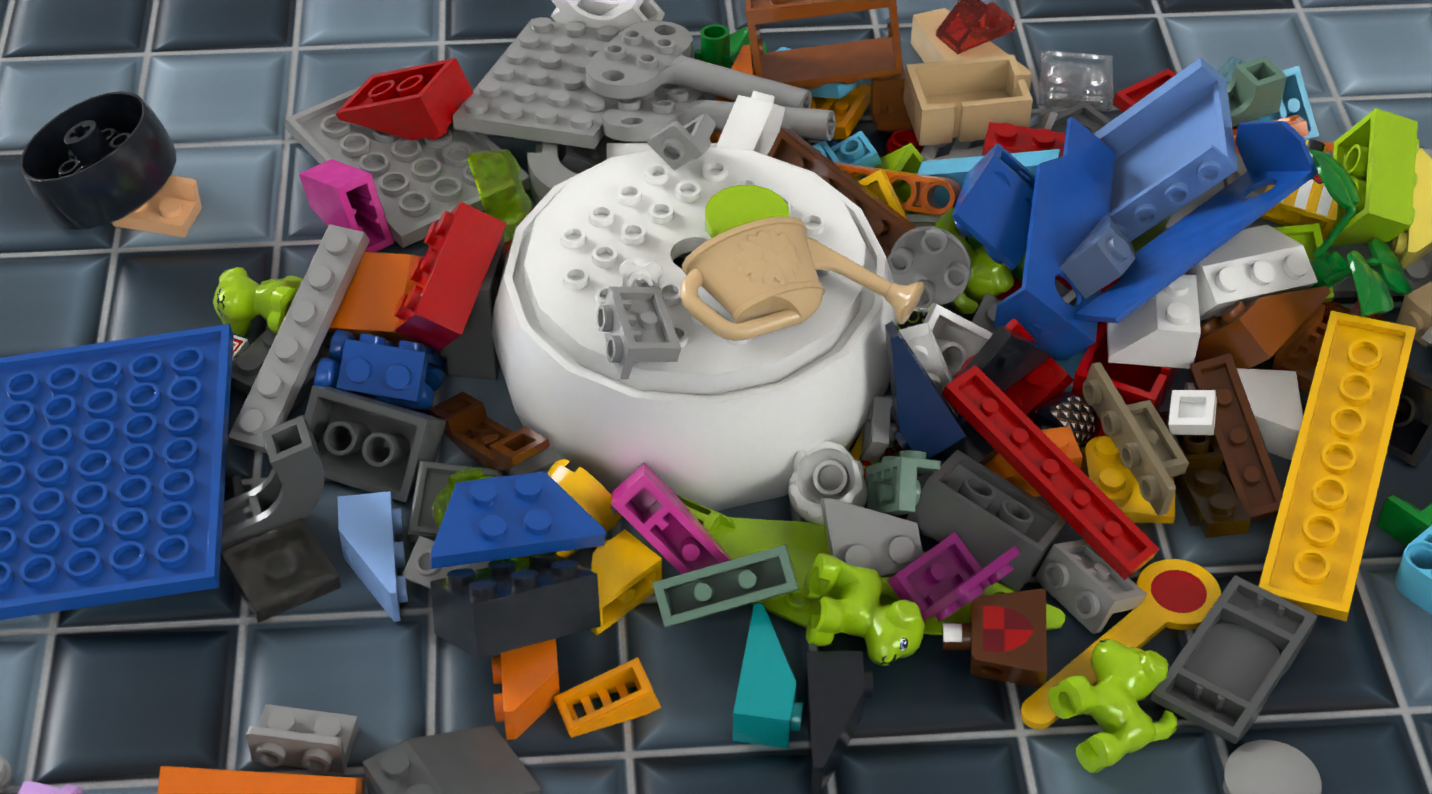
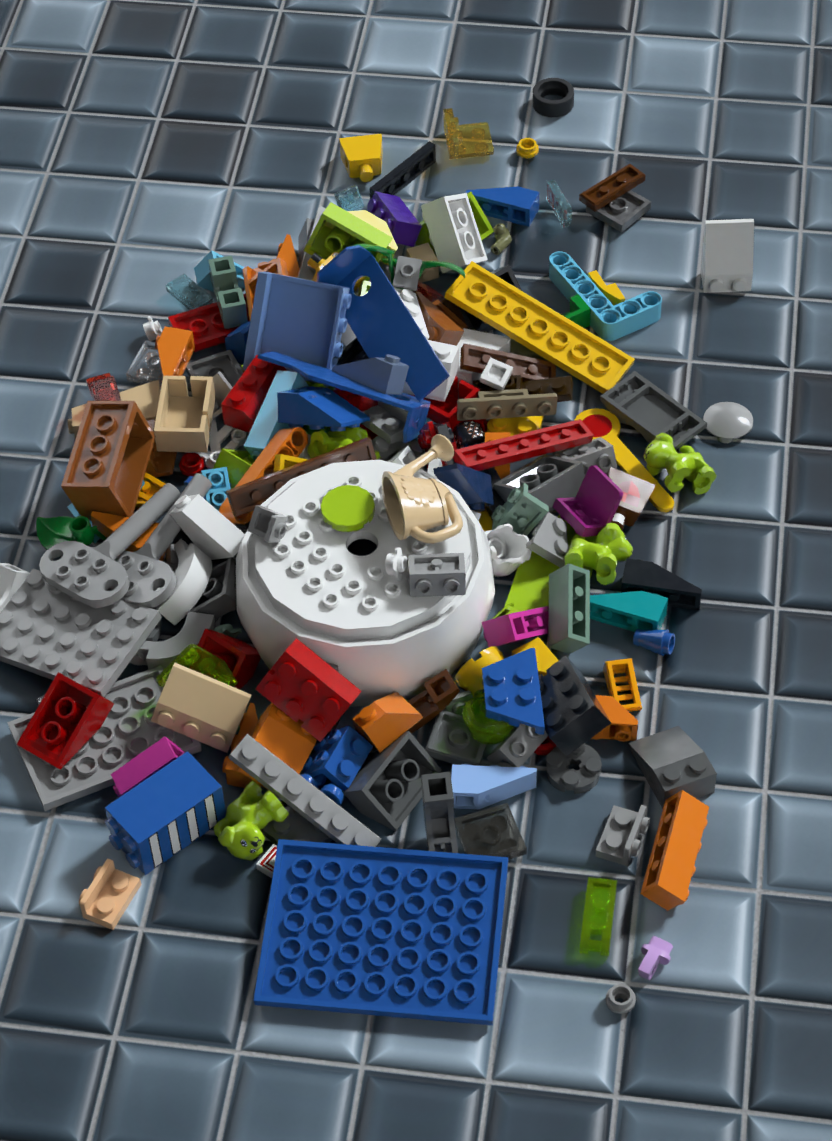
camera: 75 degrees left, 5 degrees up
(98, 160) = (50, 896): black wheel -> none
(138, 724) = (598, 915): none -> clear neon green plate
(264, 211) = (165, 813): none -> blue brick
(413, 676) = (579, 781): none -> dark grey plate
(437, 187) = (200, 707): none -> tan slope
(446, 390) = (386, 720): none -> orange slope
(710, 733) = (657, 641): none -> blue cone
(933, 258) = (379, 443): light grey dish -> none
(1077, 76) = (174, 350): none -> orange slope
(1139, 62) = (152, 329): none -> white plate
(1331, 248) = (407, 273): none -> light grey bracket

